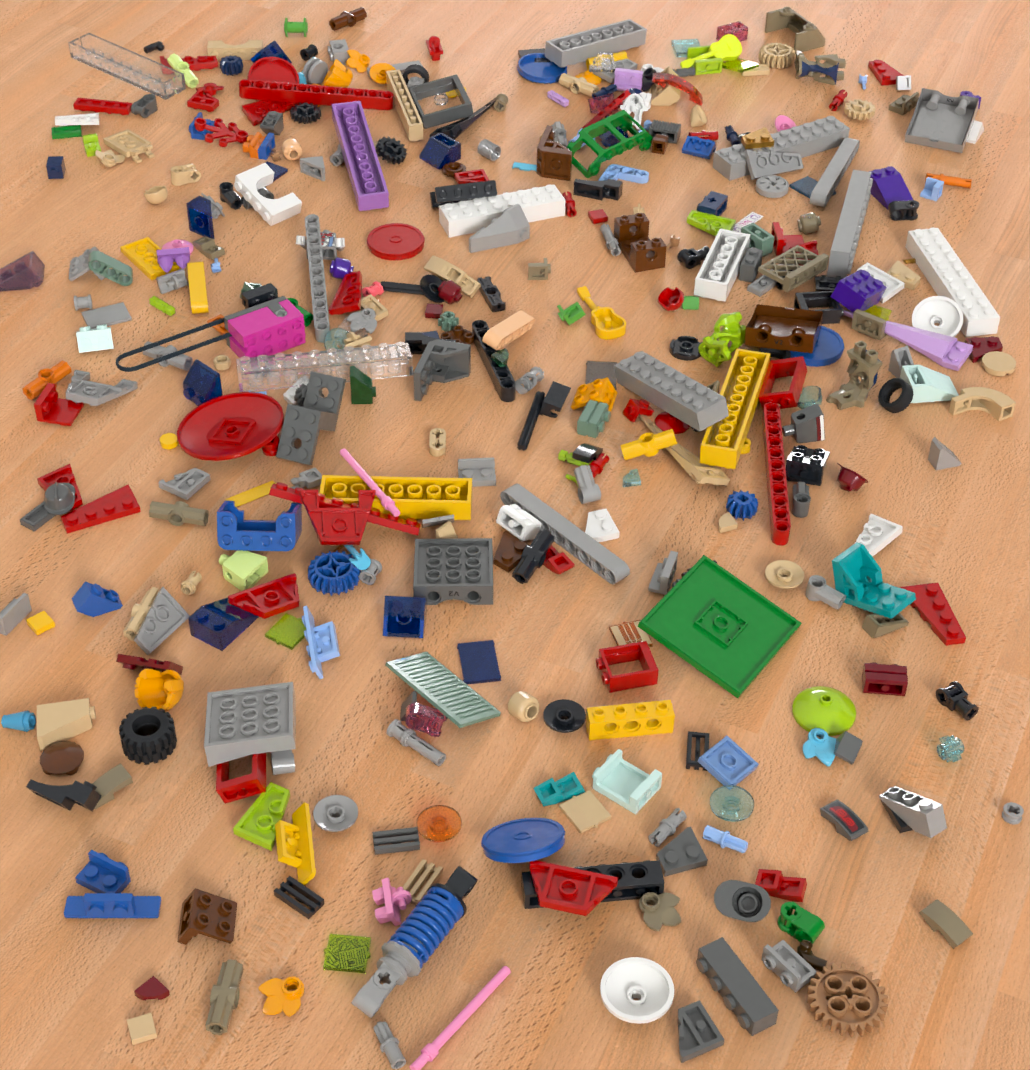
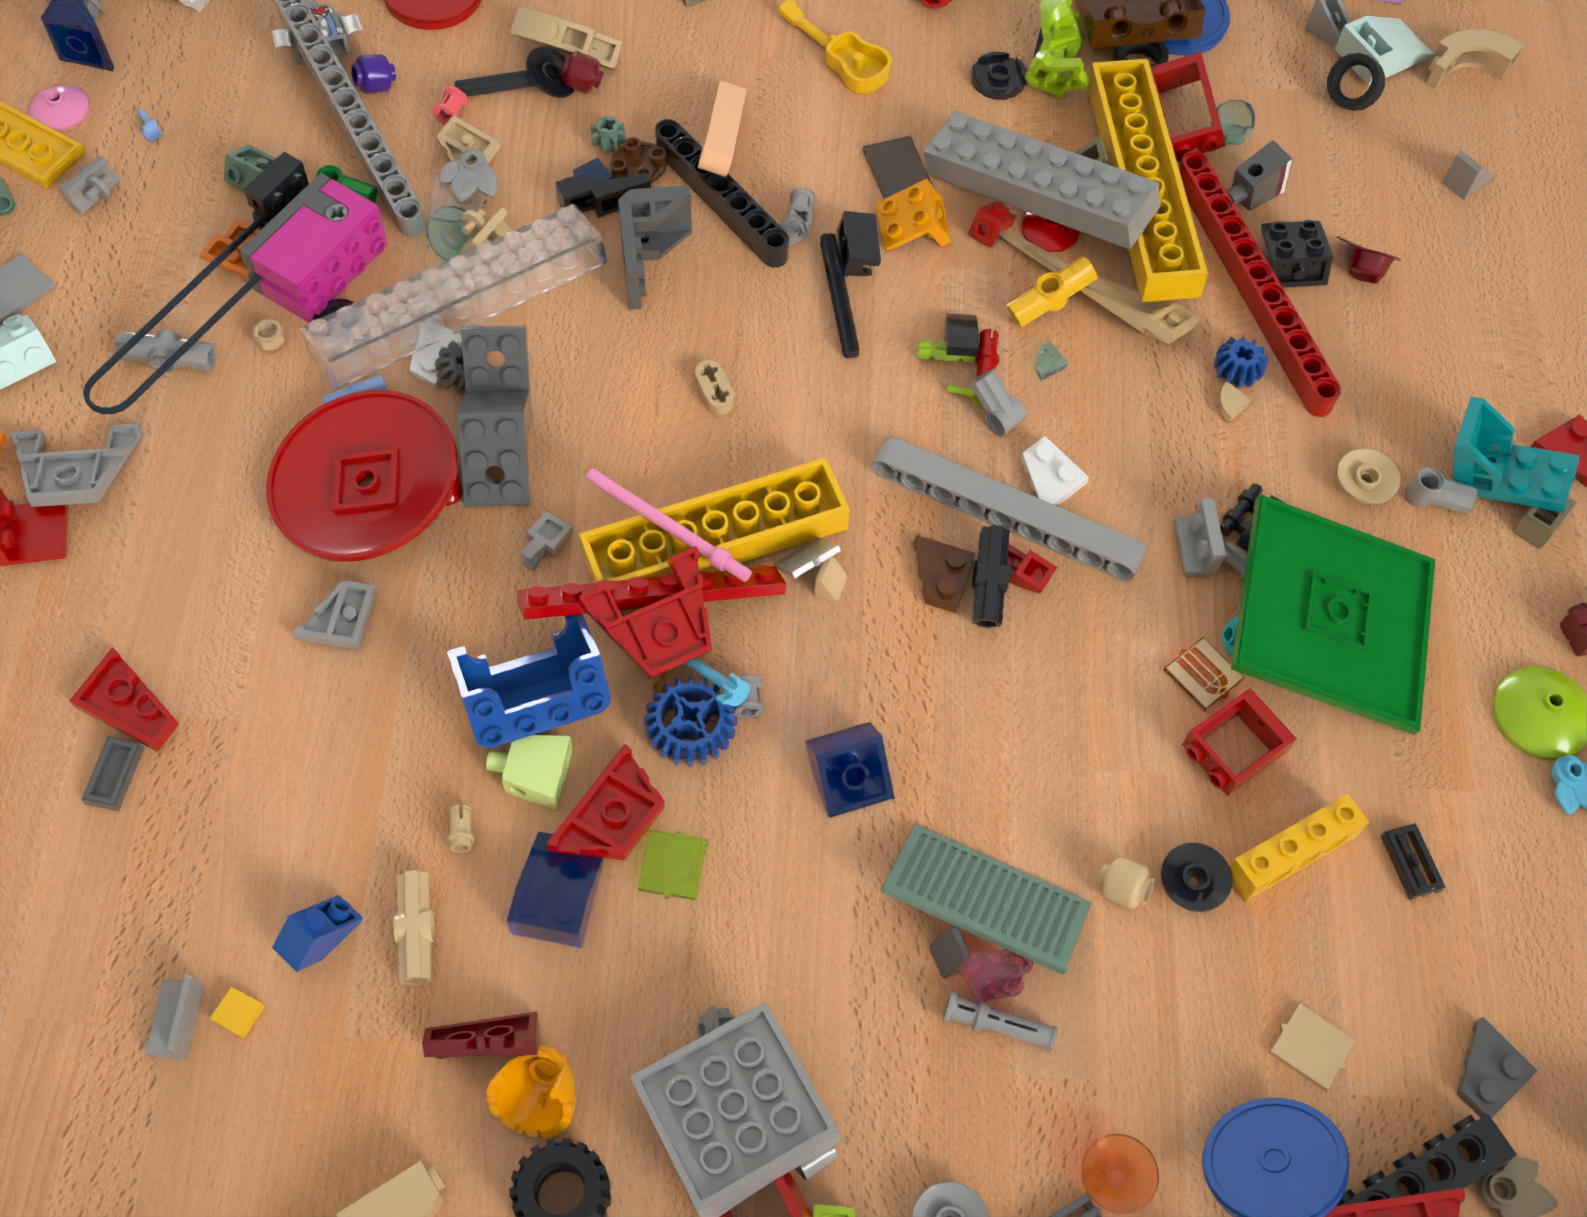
camera: 25 degrees left, 20 degrees up
(59, 498) = (134, 731): dark grey piece -> none
(104, 509) = (221, 722): red wing -> none
(160, 622) = (454, 938): light grey wing -> none
(162, 306) = (97, 242): lime axle -> none
(167, 256) = (58, 137): medium lavender tile -> none
(169, 441) = (261, 533): yellow tile -> none
(178, 513) = (362, 687): dark tan piece -> none
(197, 287) = (143, 185): yellow beam -> none
(201, 383) = (266, 400): clear blue slope -> none
(208, 248) = (115, 92): dark tan slope -> none
(251, 494) = (462, 597): yellow sticker -> none
(322, 642) = (747, 874): light blue bracket -> none
(348, 295) = (413, 125): red wing -> none
(361, 387) = (542, 319): dark green slope -> none
(433, 310) = (570, 116): dark red tile -> none
(454, 570) = (878, 646): dark grey piece -> none
(479, 469) = (810, 432): light grey bracket -> none
(479, 662) = (1005, 813): clear blue piece -> none
(491, 294) = (655, 66): black piece -> none
(500, 357) = (741, 189): clear green tile -> none
(518, 522) = (932, 514): white brick -> none
(559, 791) = (1256, 1022): teal slope -> none
(571, 313) = (794, 59): bright green bracket -> none
(593, 419) = (936, 264): sand green brick -> none
(625, 782) = (1350, 970): light aqua panel -> none
(667, 827) = (1448, 1030): light grey pin -> none
(724, 839) = (1542, 1020): light blue axle -> none
(728, 762) = (1472, 871): medium blue plate -> none
(731, 803) = (1529, 939): clear light blue dish -> none
(801, 500) = (1320, 324): dark grey piece -> none
(855, 389) = (1310, 51): dark tan hips -> none
(878, 534) = (1452, 356): white wing -> none

